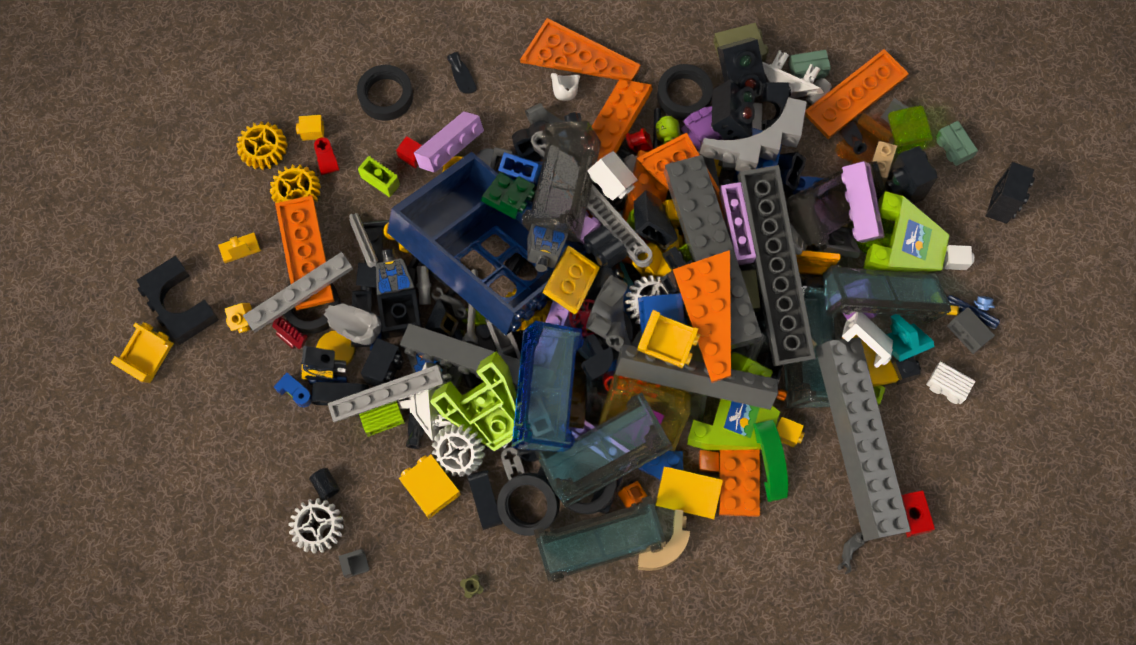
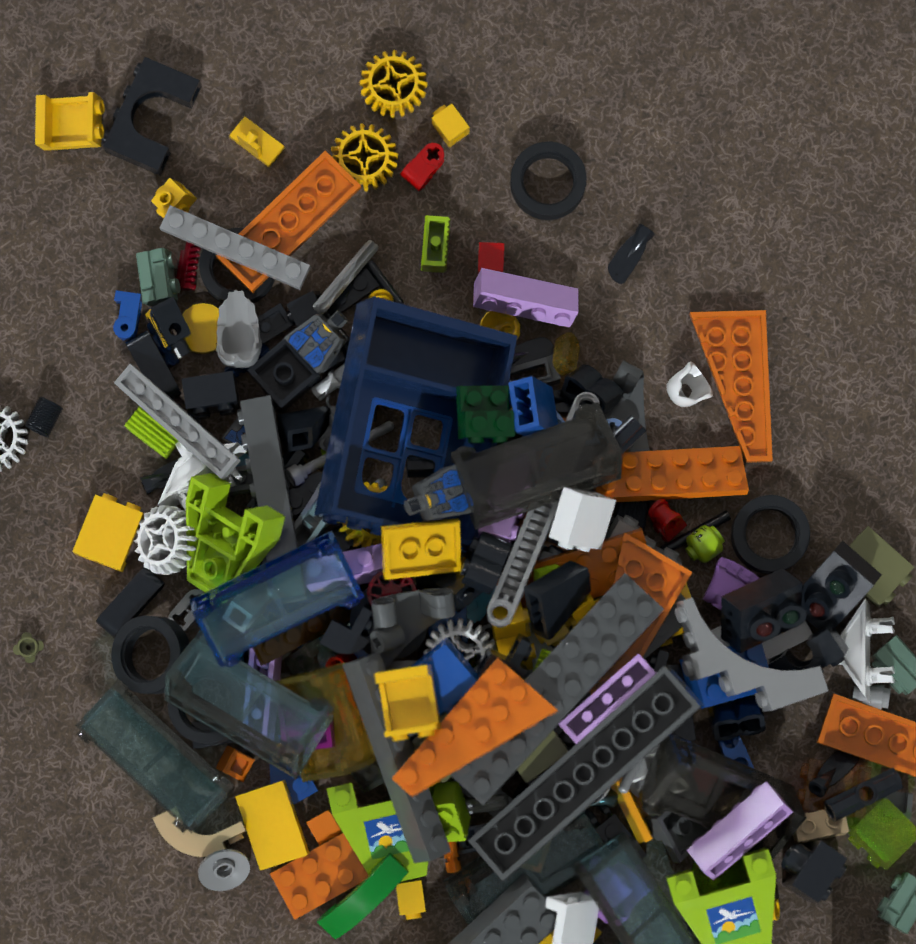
camera: 55 degrees right, 10 degrees up
(282, 356) = (157, 276): none -> sand green brick
(499, 141) = (566, 353): none -> clear yellow beam
(700, 541) = (223, 870): none -> light grey dish
(880, 123) = (850, 801): none -> black piece

